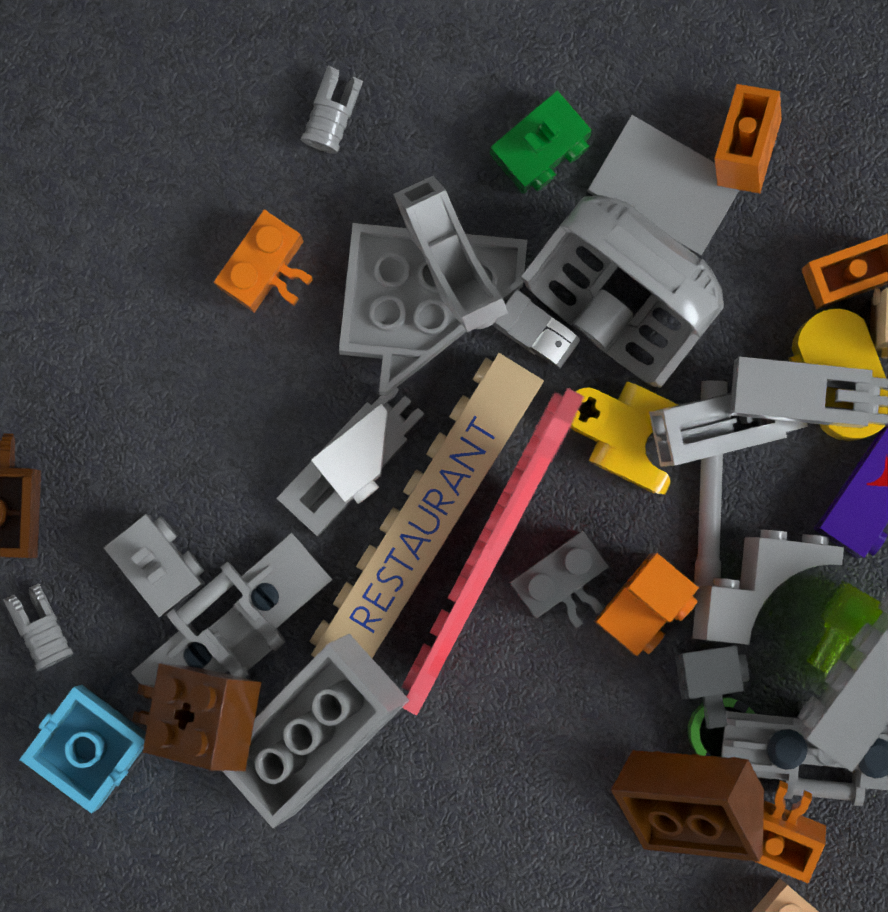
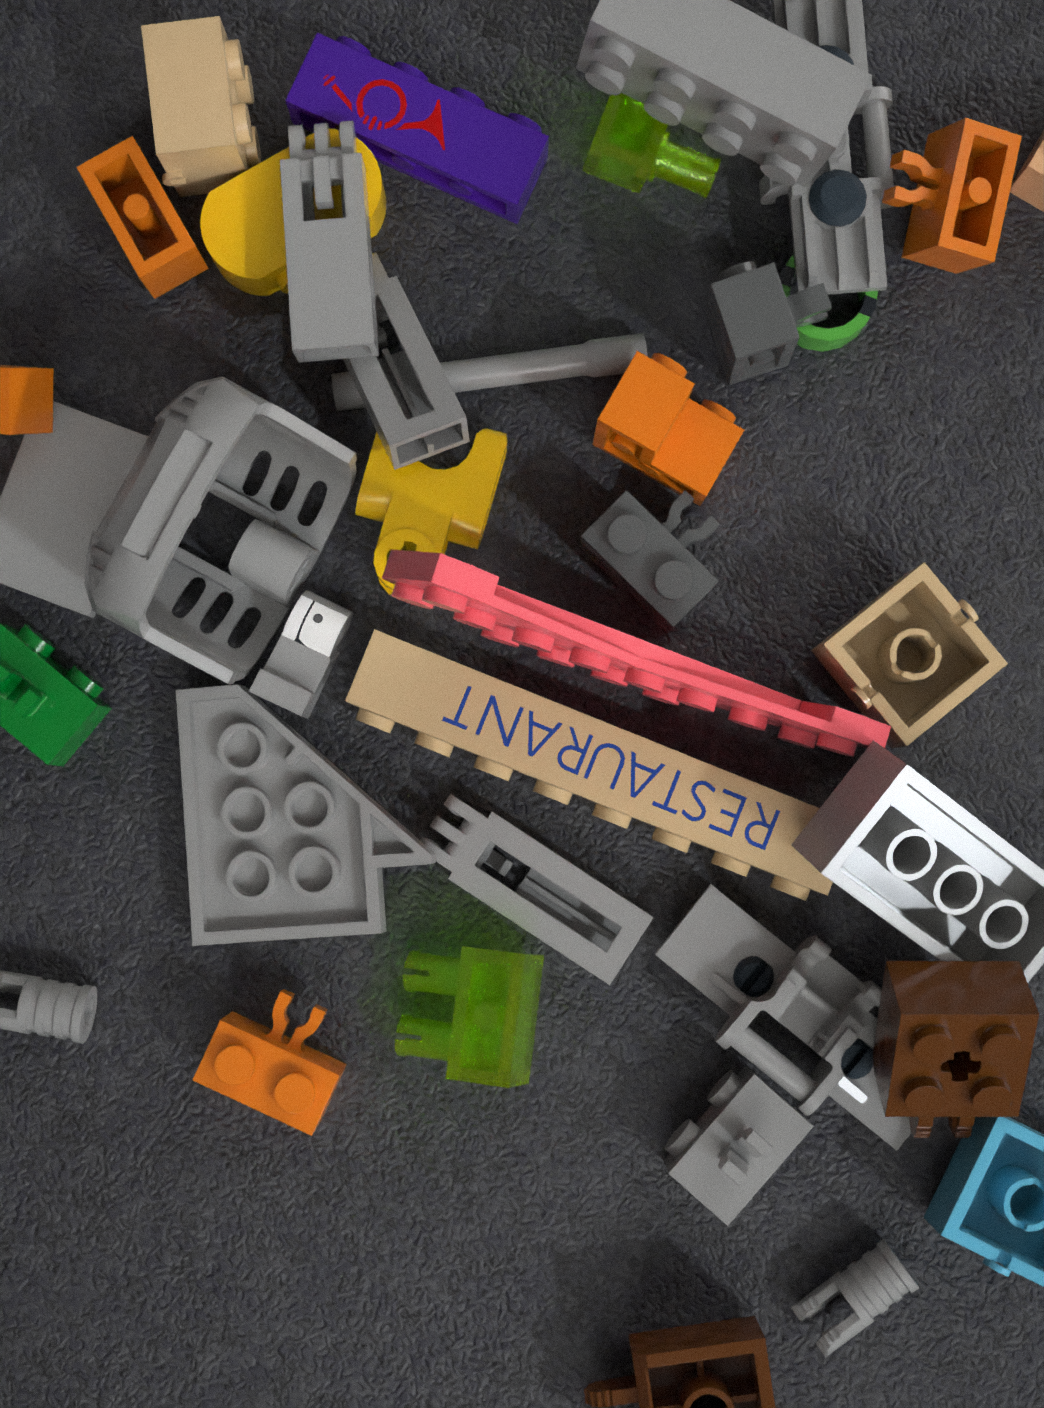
camera: 105 degrees left, 0 degrees up
(271, 415) = (491, 1017): none -> clear neon green brick
(356, 457) = (533, 881): white slope -> none
(449, 255) = (214, 795): light grey arch -> none
(462, 741) = (910, 655): none -> tan brick
(693, 804) = (939, 313): reddish brown slope -> none
(728, 612) = (579, 271): light grey arch -> none

